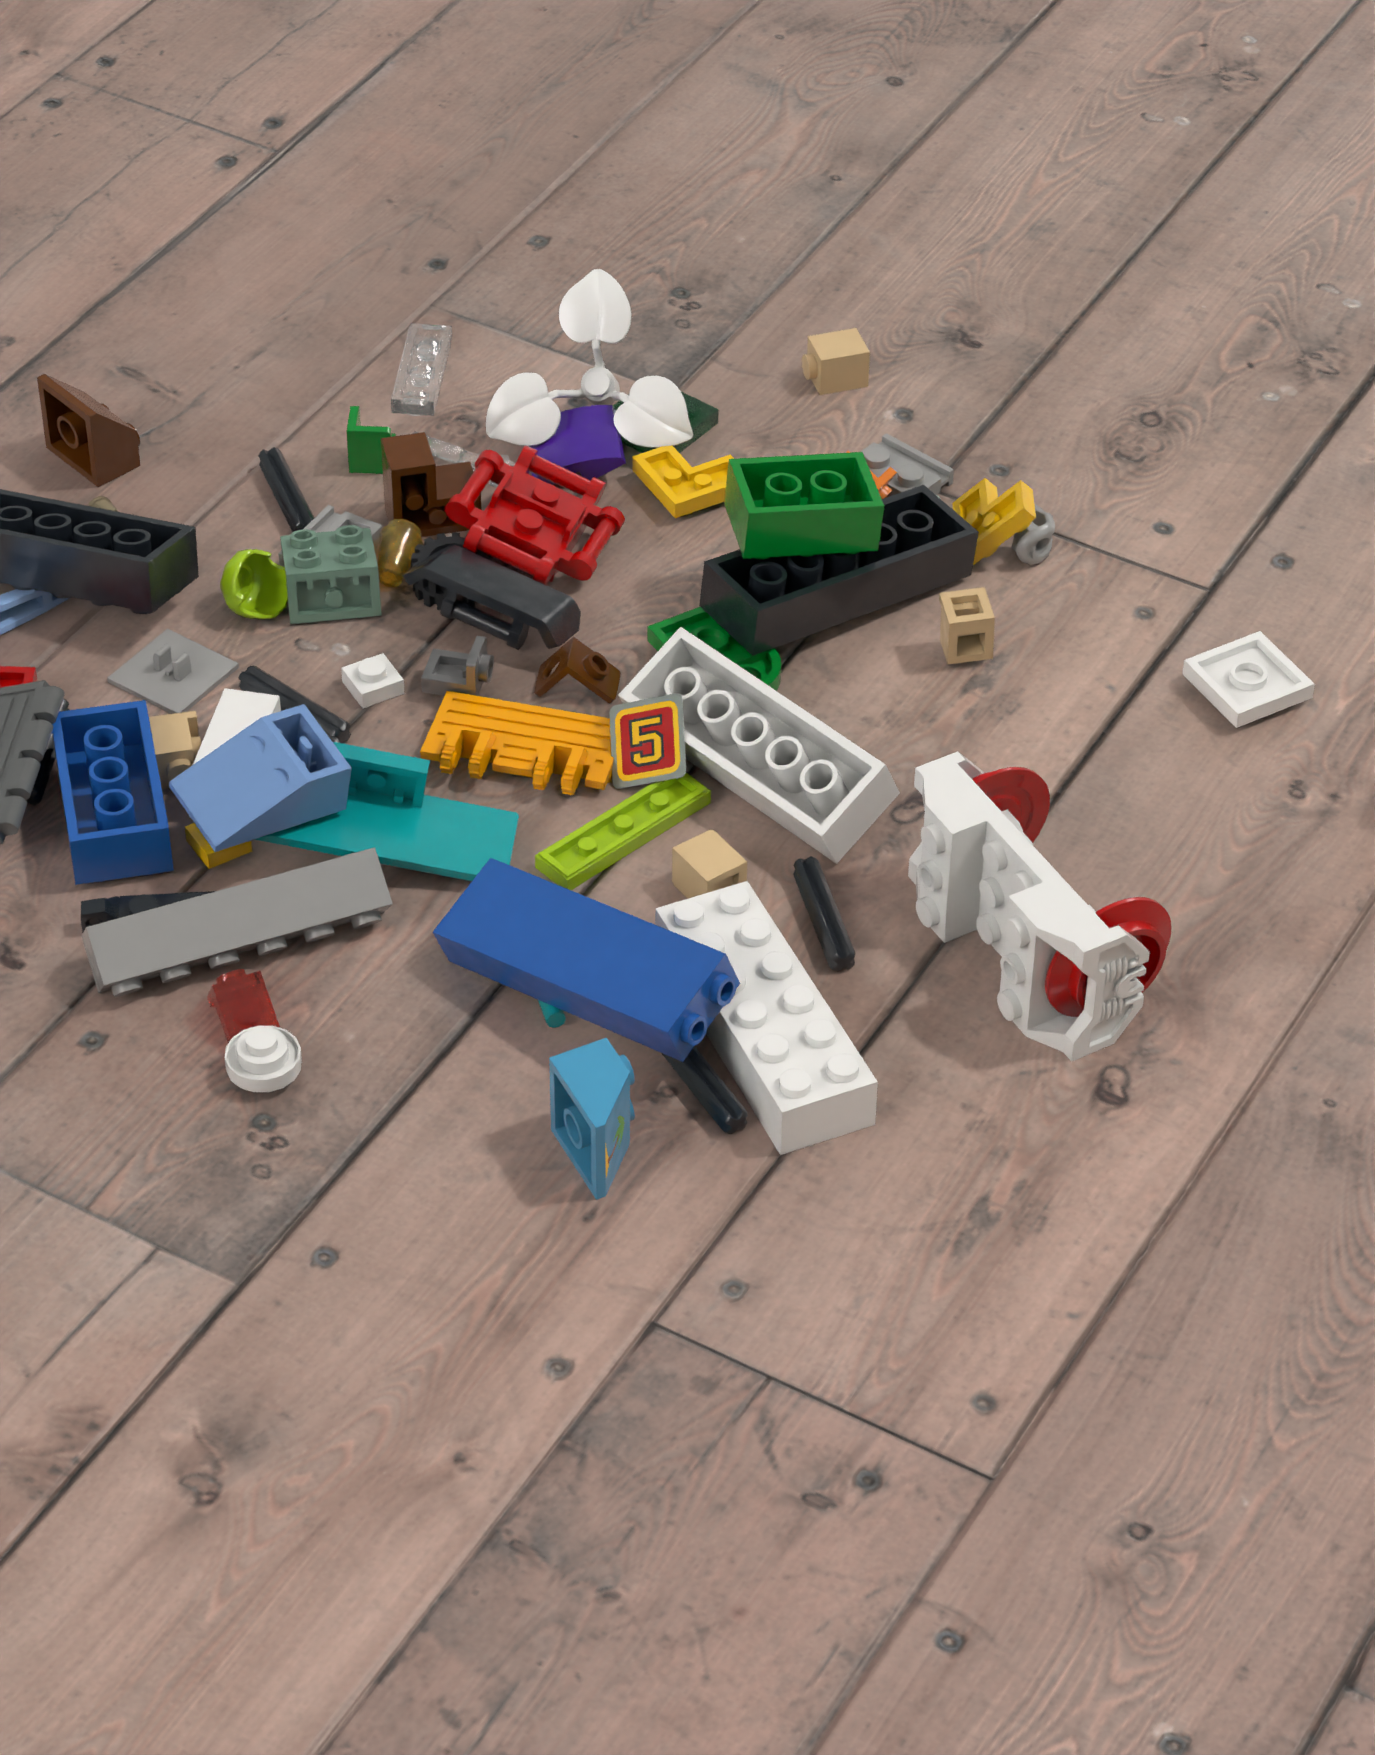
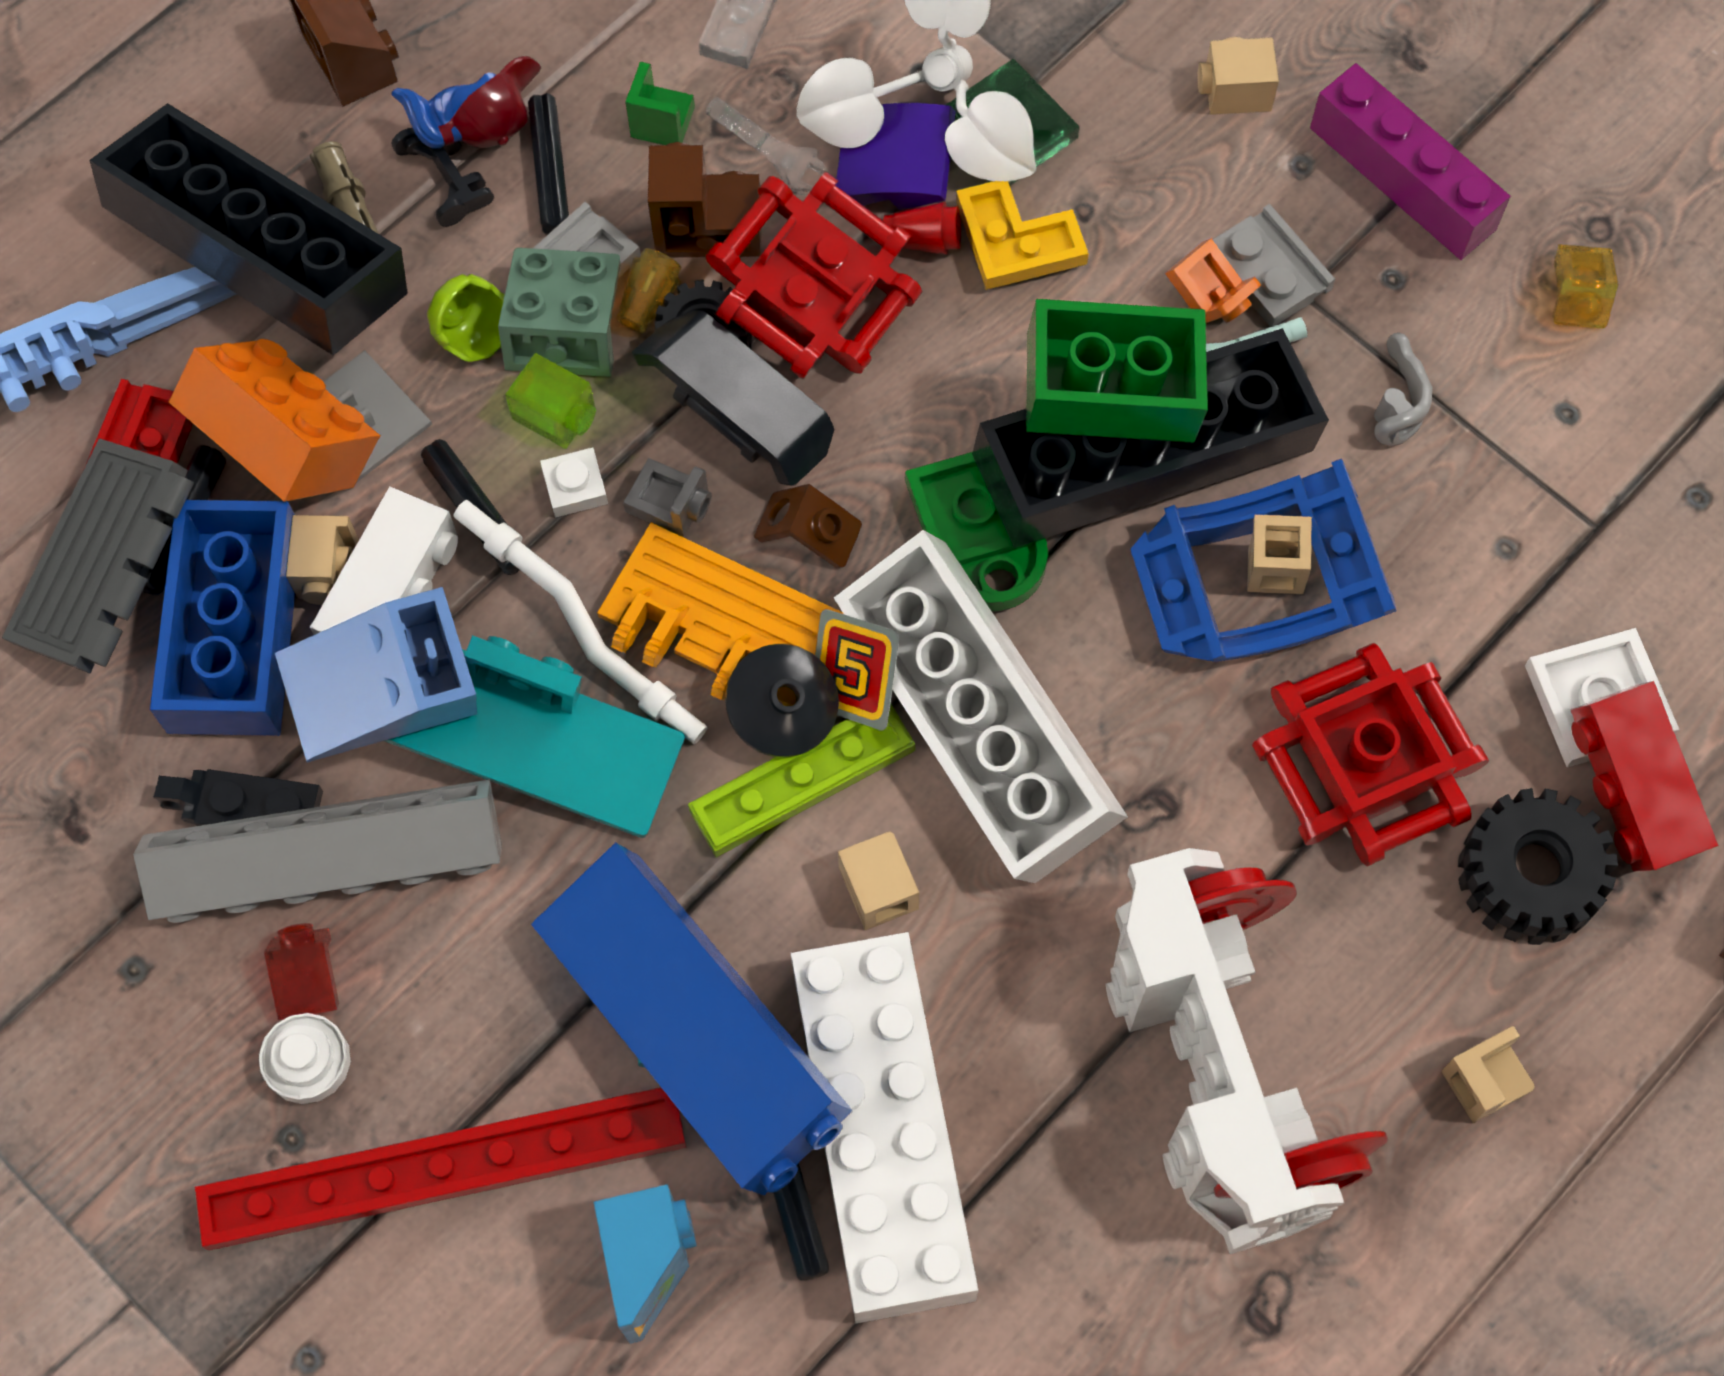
camera: 15 degrees right, 25 degrees up
(116, 654) = (274, 418): none -> orange brick
(217, 460) = (474, 113): none -> dark red hair
(221, 520) = (465, 192): none -> black piece
(334, 713) = (506, 545): none -> white bar
(339, 628) = (551, 401): none -> clear neon green brick
(386, 1111) = (437, 1168): none -> red plate
(594, 772) = (761, 717): none -> black dish
(622, 484) = (932, 227): none -> red cone
(824, 914) = (998, 966): black axle -> none
(903, 678) = (1338, 540): none -> blue wedge
(988, 390) = (1409, 161): none -> magenta brick
(995, 516) = (1350, 383): yellow plate -> none
(1083, 731) = (1371, 752): none -> red brick
(1151, 448) = (1585, 286): none -> clear yellow bracket
(1228, 804) = (1511, 898): none -> black tyre
(1233, 913) = (1488, 1076): none -> tan panel
(1295, 708) = (1642, 778): none -> red brick

